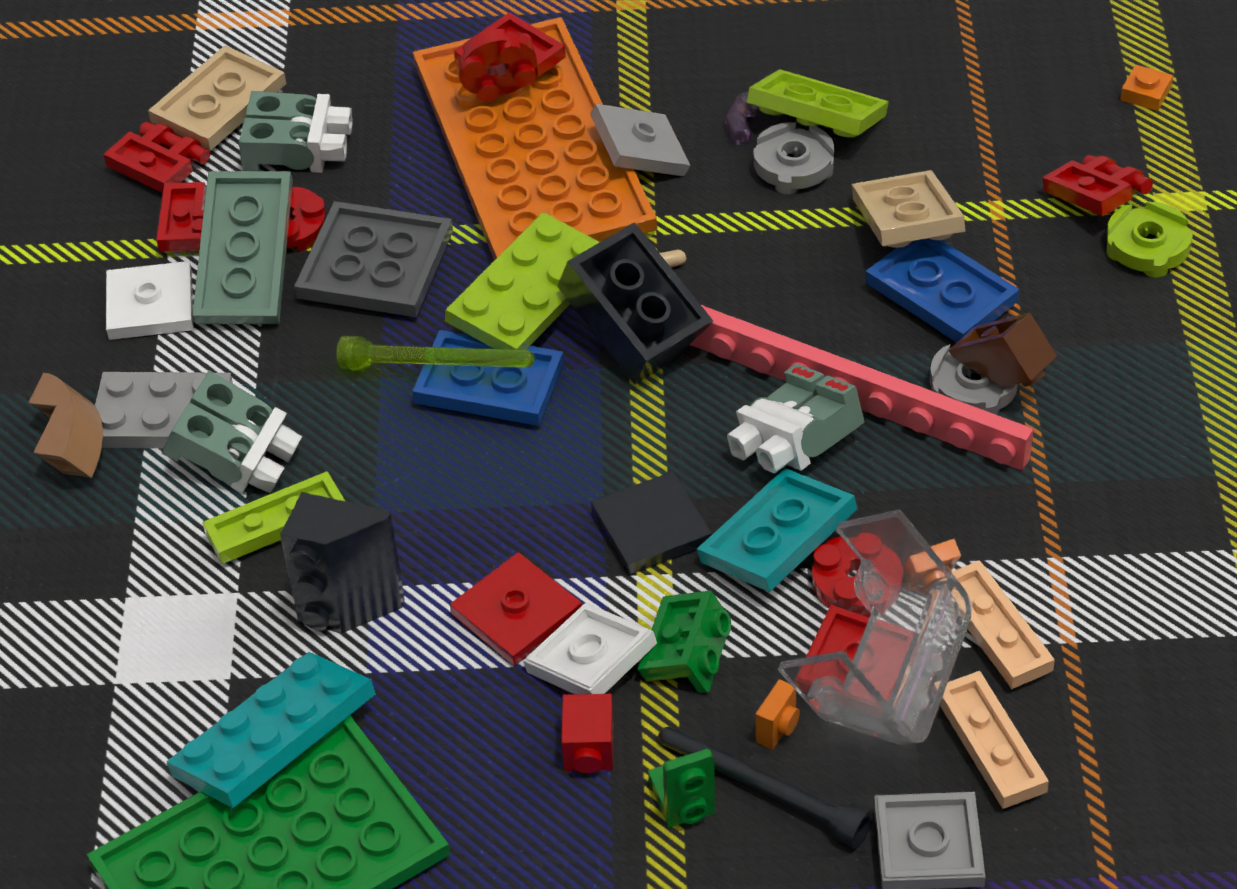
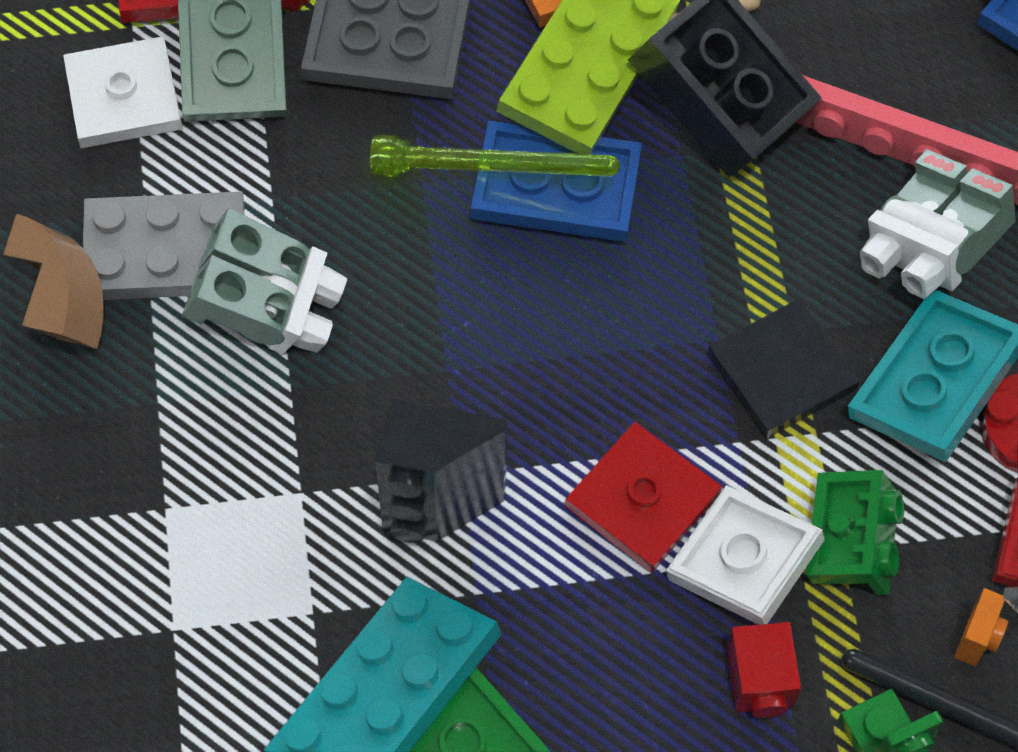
camera: 10 degrees left, 15 degrees up
(261, 520) = (332, 391): lime plate -> none

